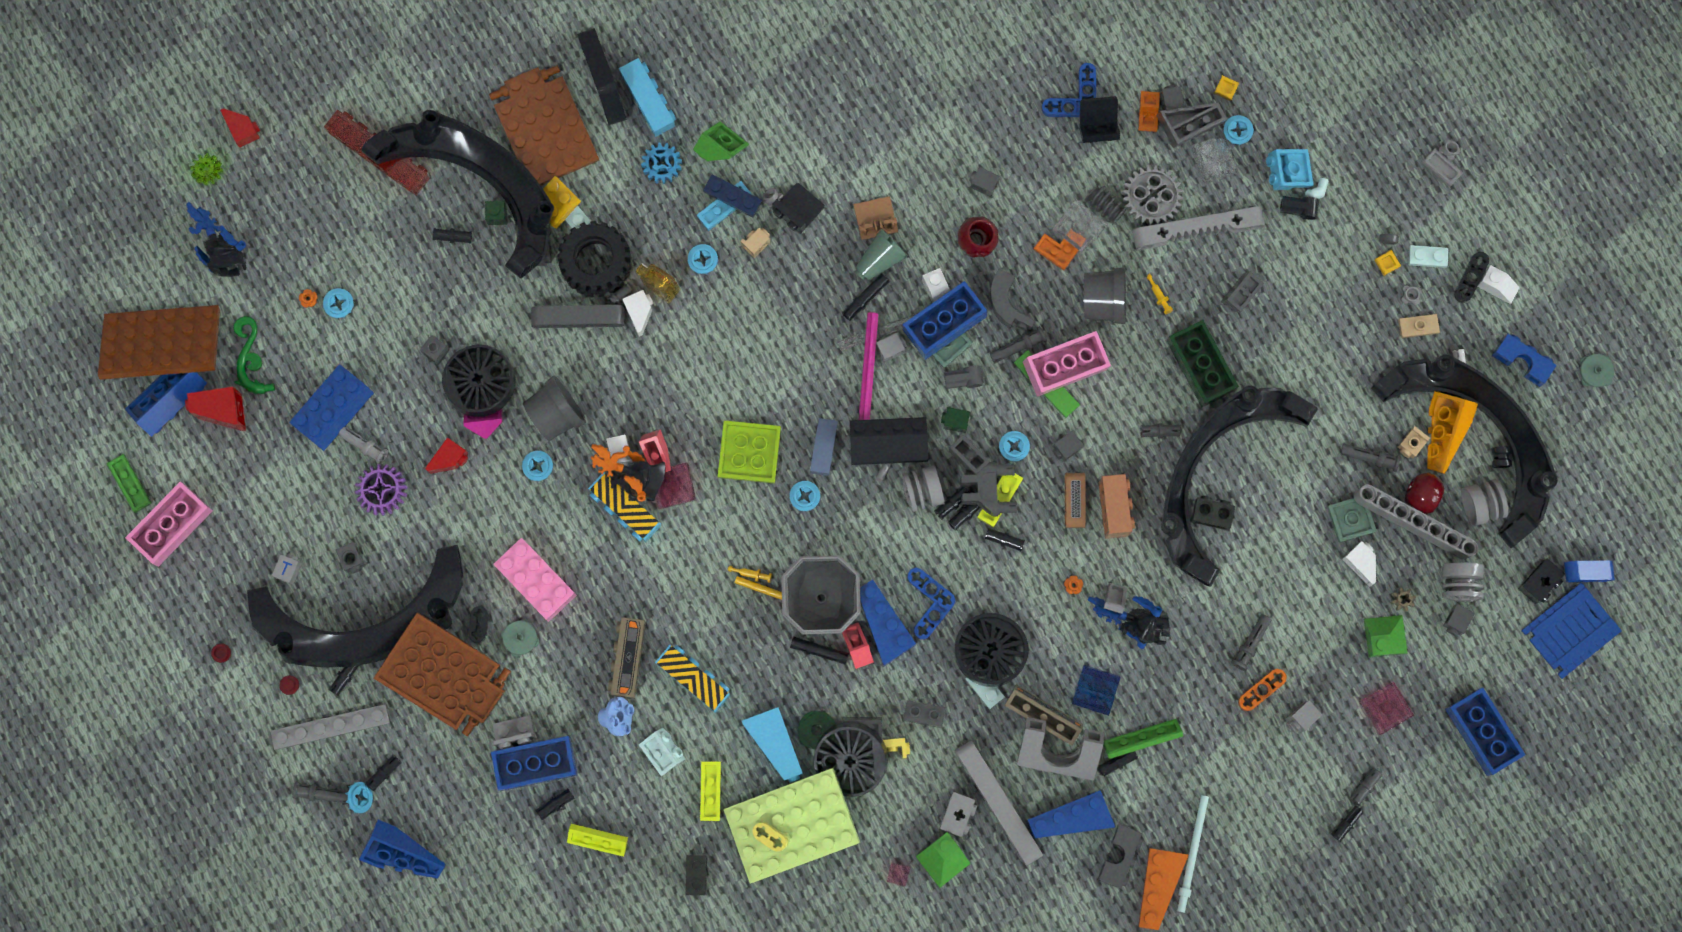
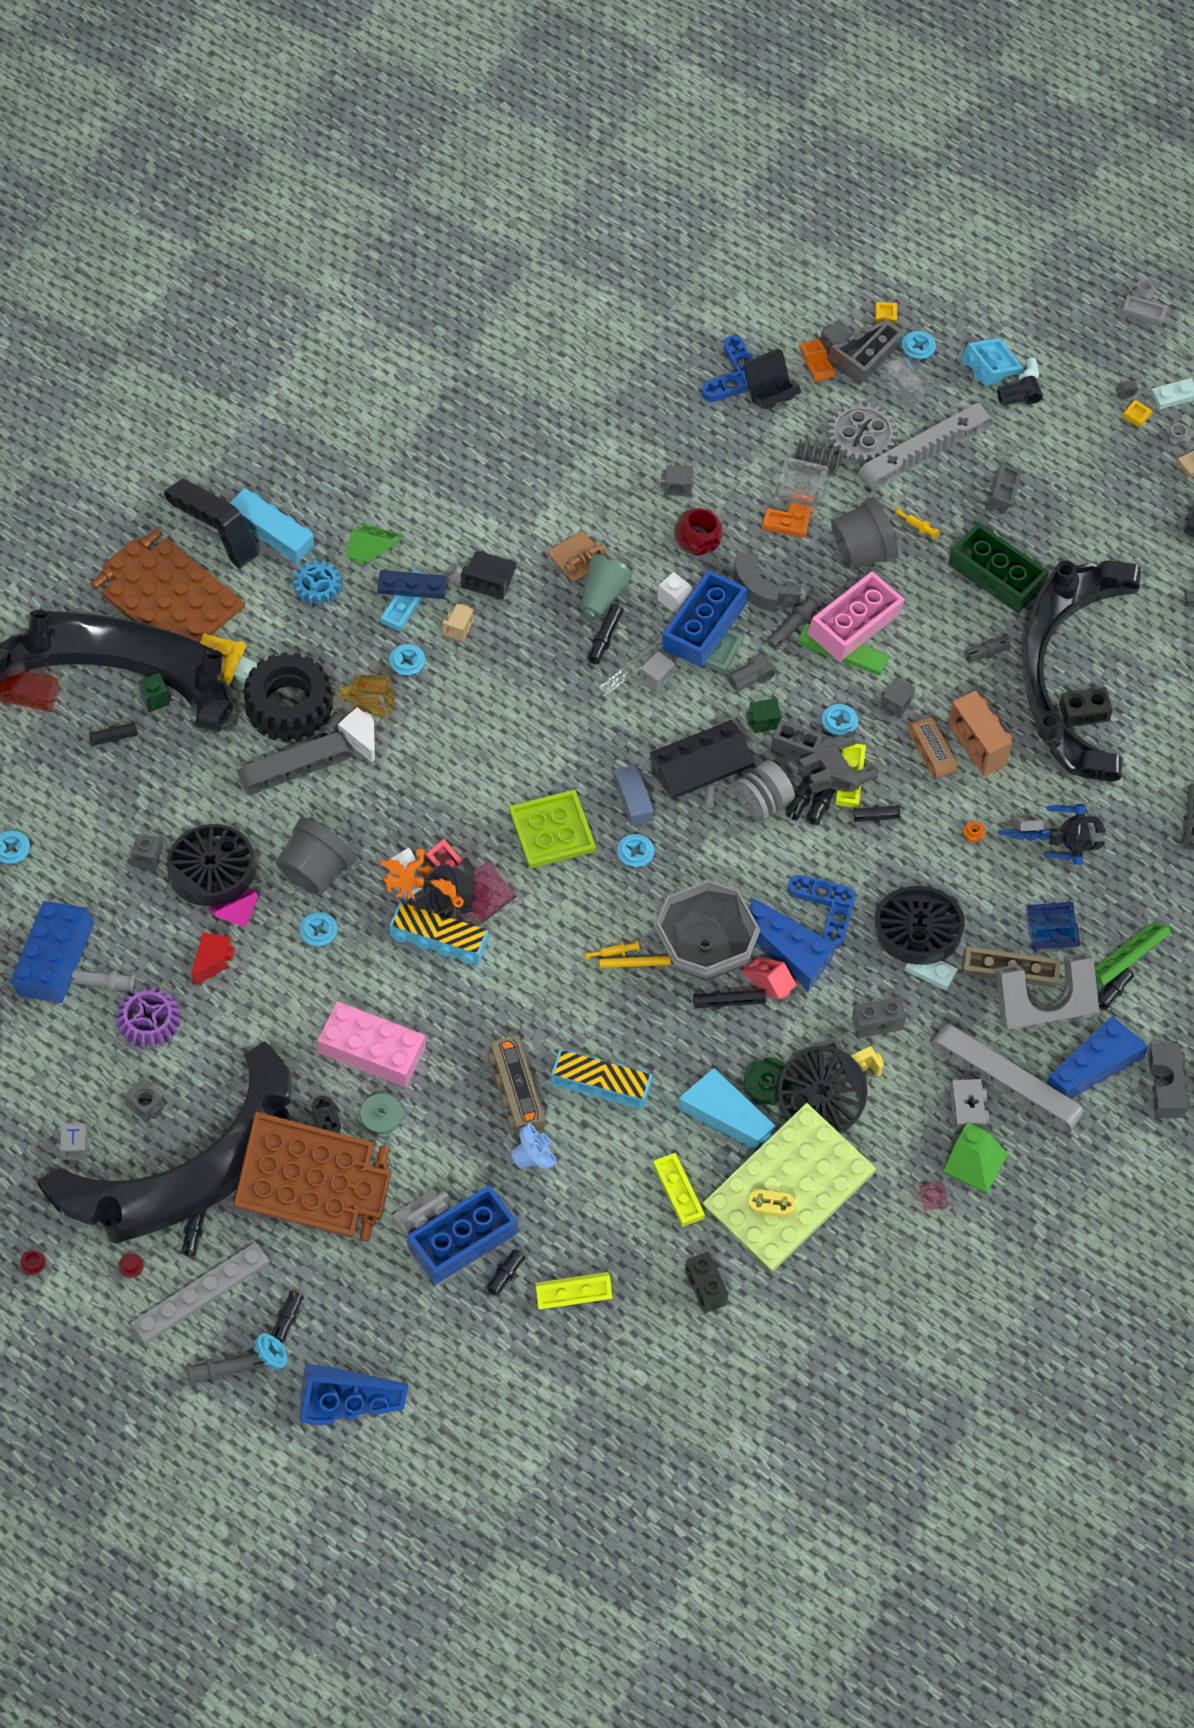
camera: 25 degrees left, 20 degrees down
(662, 751) = (602, 1170): light aqua bracket -> none
(868, 366) = (641, 694): dark pink axle -> none

